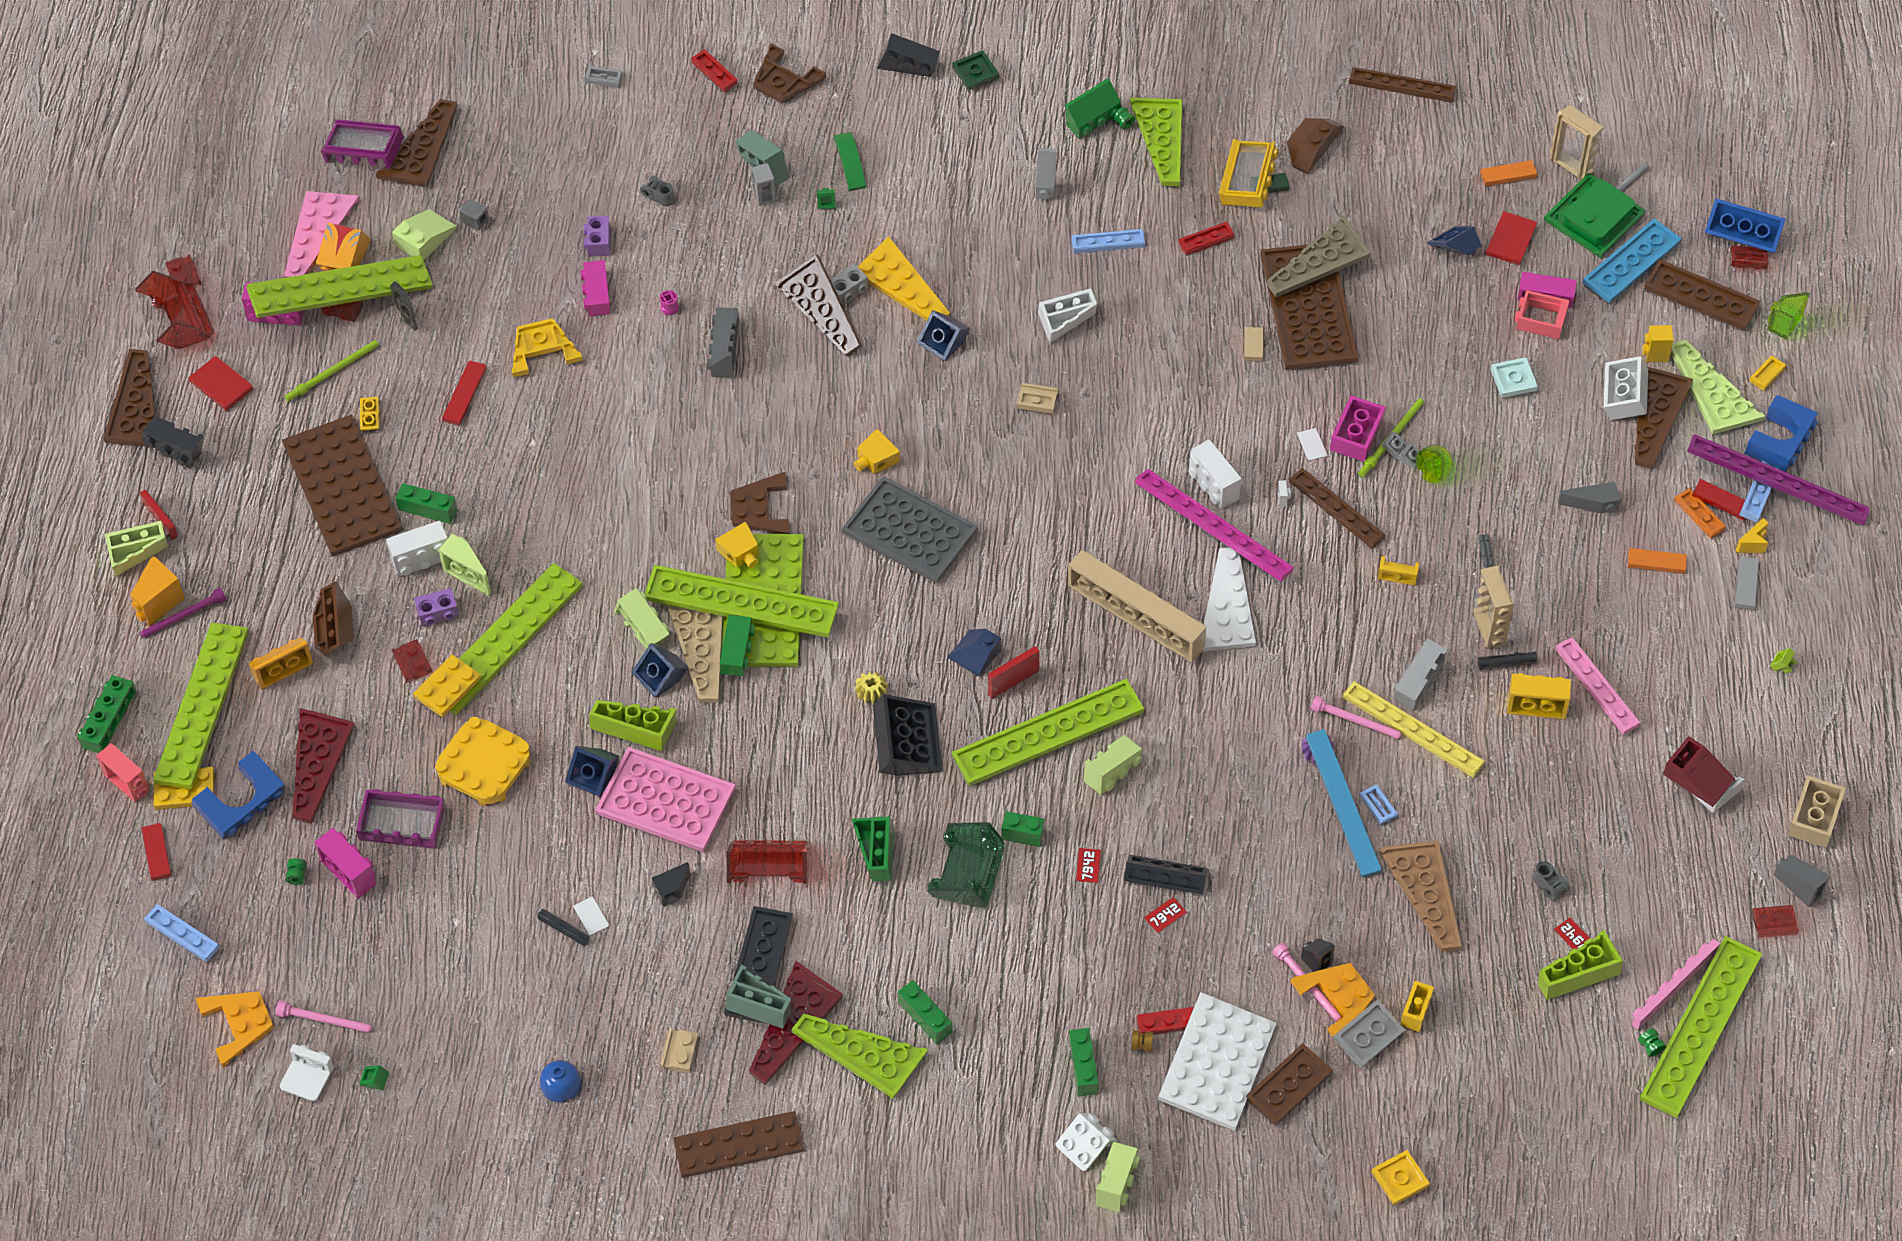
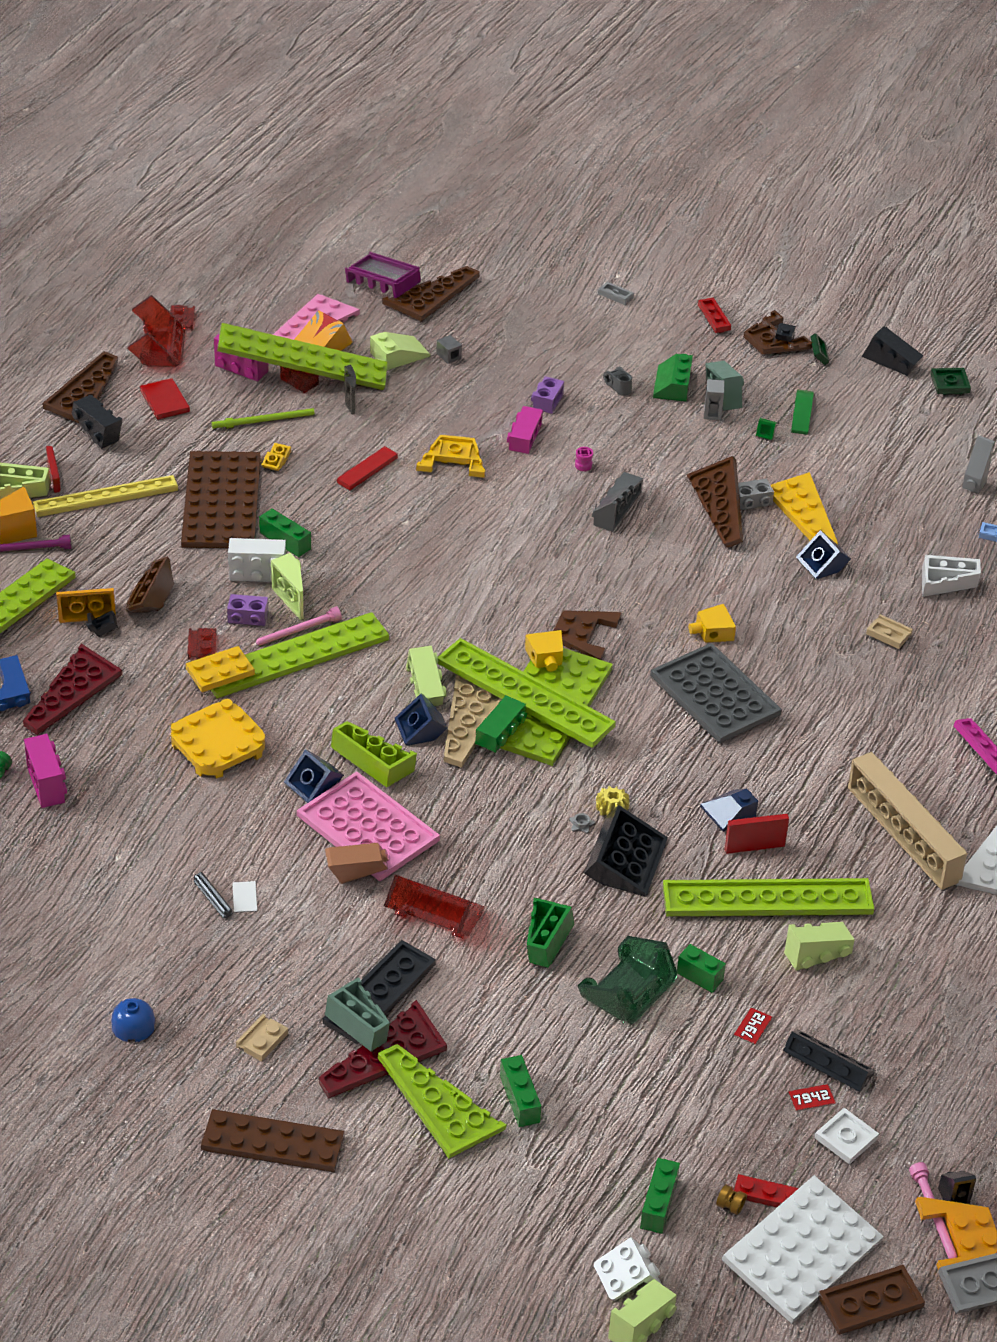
camera: 20 degrees right, 15 degrees down
(226, 524) = (105, 496): none -> light yellow tile
(307, 676) = (102, 624): none -> black bracket
(400, 818) = (116, 757): window -> none
(519, 580) = (333, 615): none -> bright pink piece
(671, 884) = (335, 894): black slope -> none
(679, 844) = (356, 861): none -> nougat slope
(710, 168) = (673, 378): none -> green slope
(794, 70) = (785, 332): none -> black bracket
(835, 77) = (819, 349): none -> dark green tile
(851, 713) = (578, 820): none -> light grey plate
(1209, 941) = (846, 1135): none -> white plate

